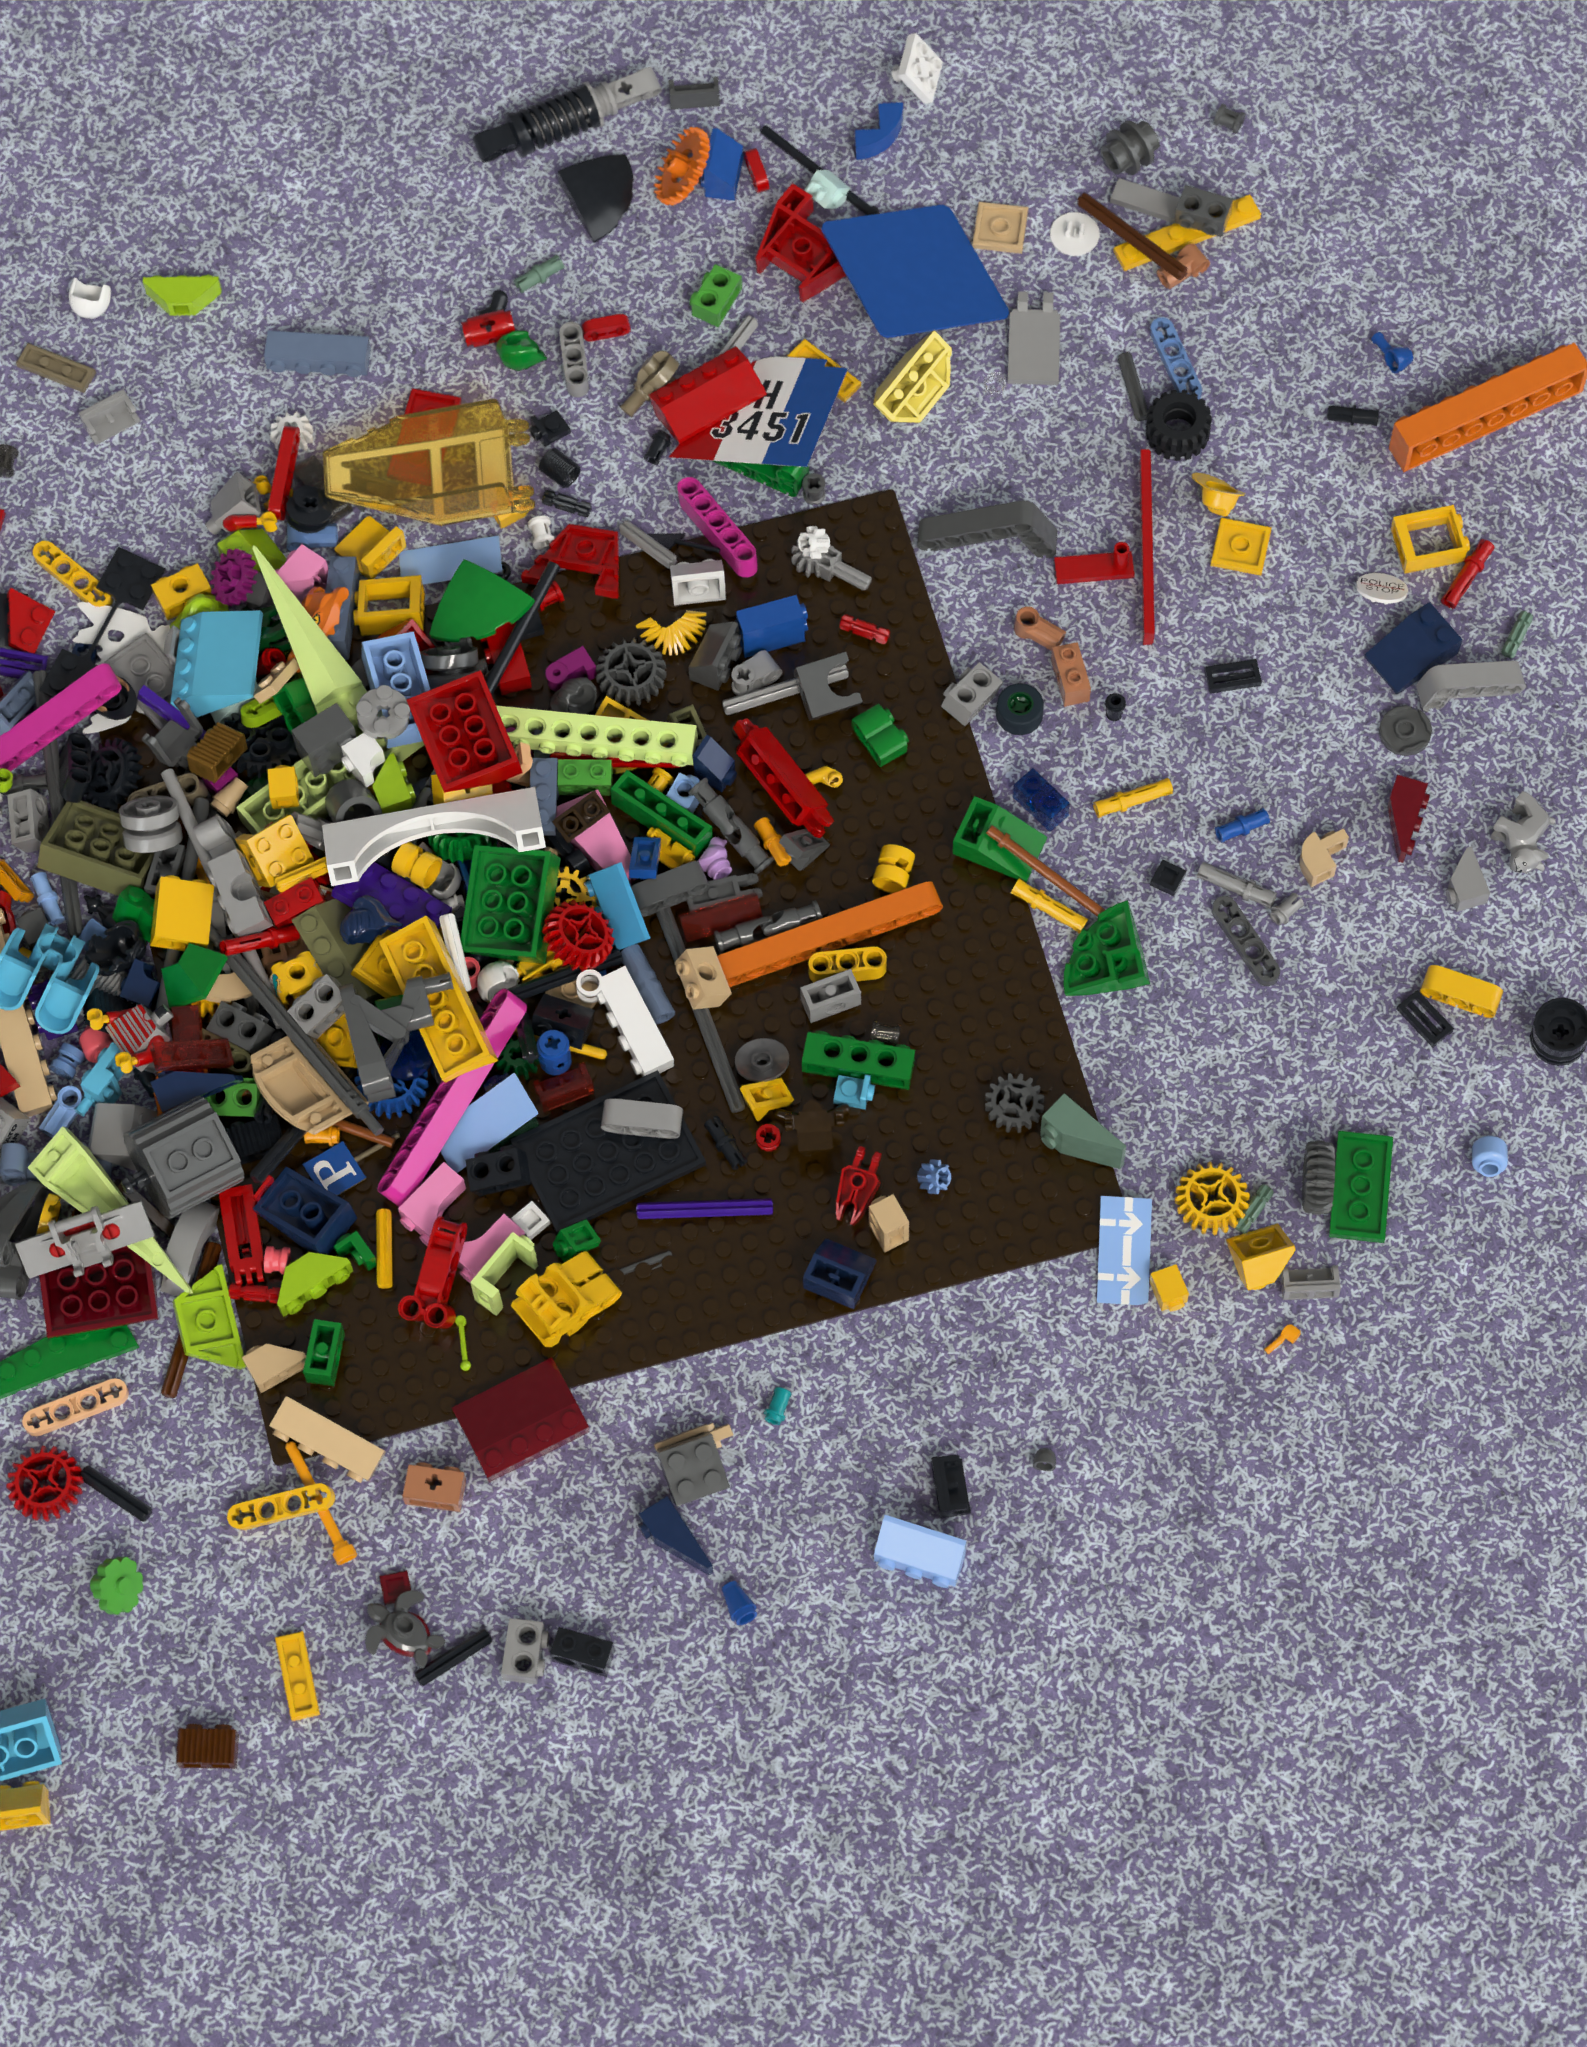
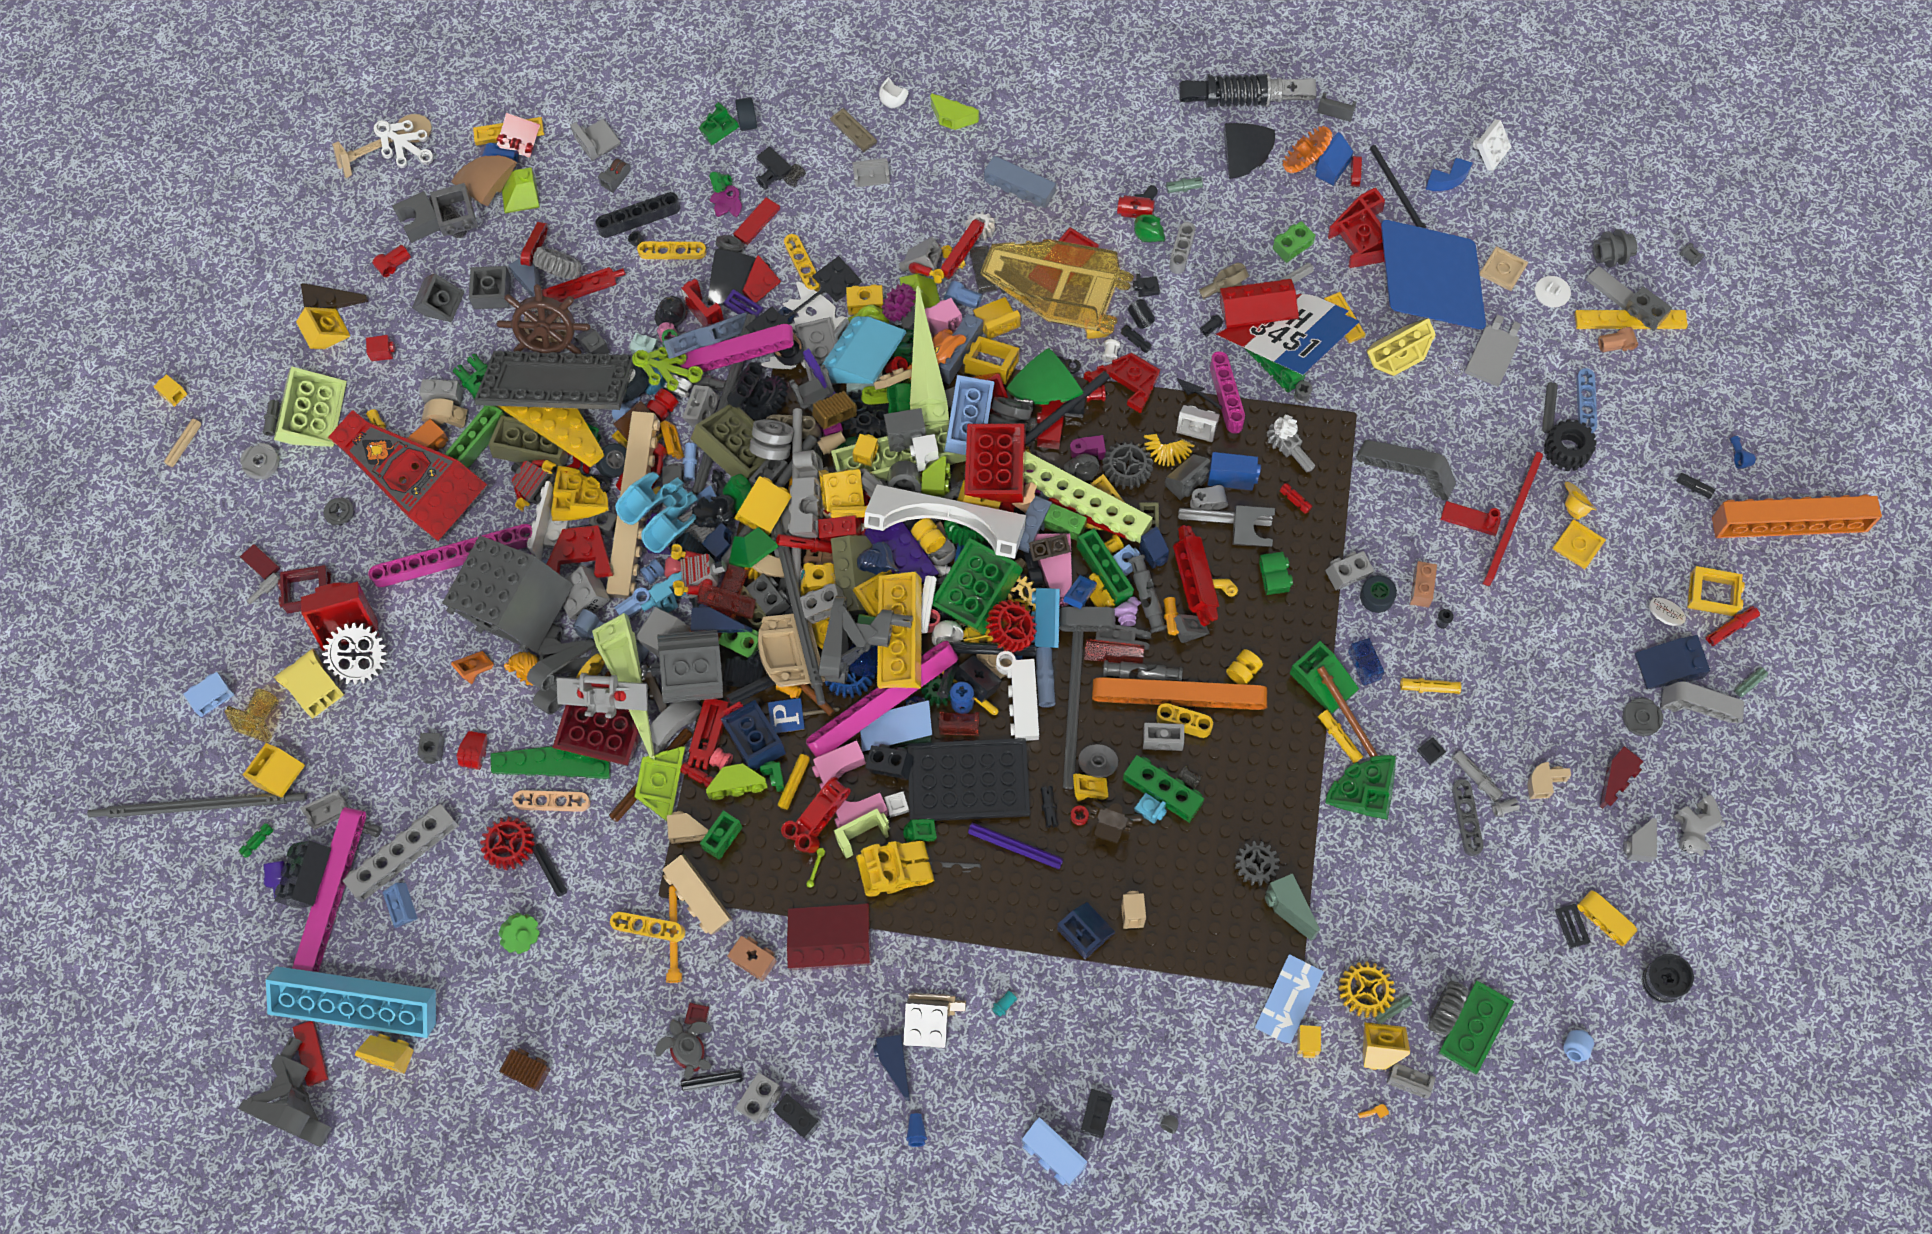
camera: 25 degrees right, 0 degrees up
(297, 1676) = (606, 1046): yellow tile -> none
(309, 510) = (966, 278): black piece -> none
(378, 699) = (952, 417): light grey plate -> none
(442, 561) = (1034, 343): light blue sticker -> none
(606, 327) = (1212, 235): red beam -> none
(642, 1118) = (999, 767): light grey beam -> none
(648, 544) = (1176, 385): light grey axle -> none
(702, 977) = (1087, 697): tan brick -> none
(827, 189) = (1397, 200): light aqua brick -> none
(857, 1186) = (1124, 876): red hinge -> none
(934, 1176) = (1179, 891): medium blue gear -> none
(1040, 629) = (1415, 547): nougat piece -> none
(1132, 236) = (1592, 307): reddish brown axle -> none
(1235, 685) = (1519, 633): black tile -> none
(1242, 825) = (1499, 736): blue pin -> none

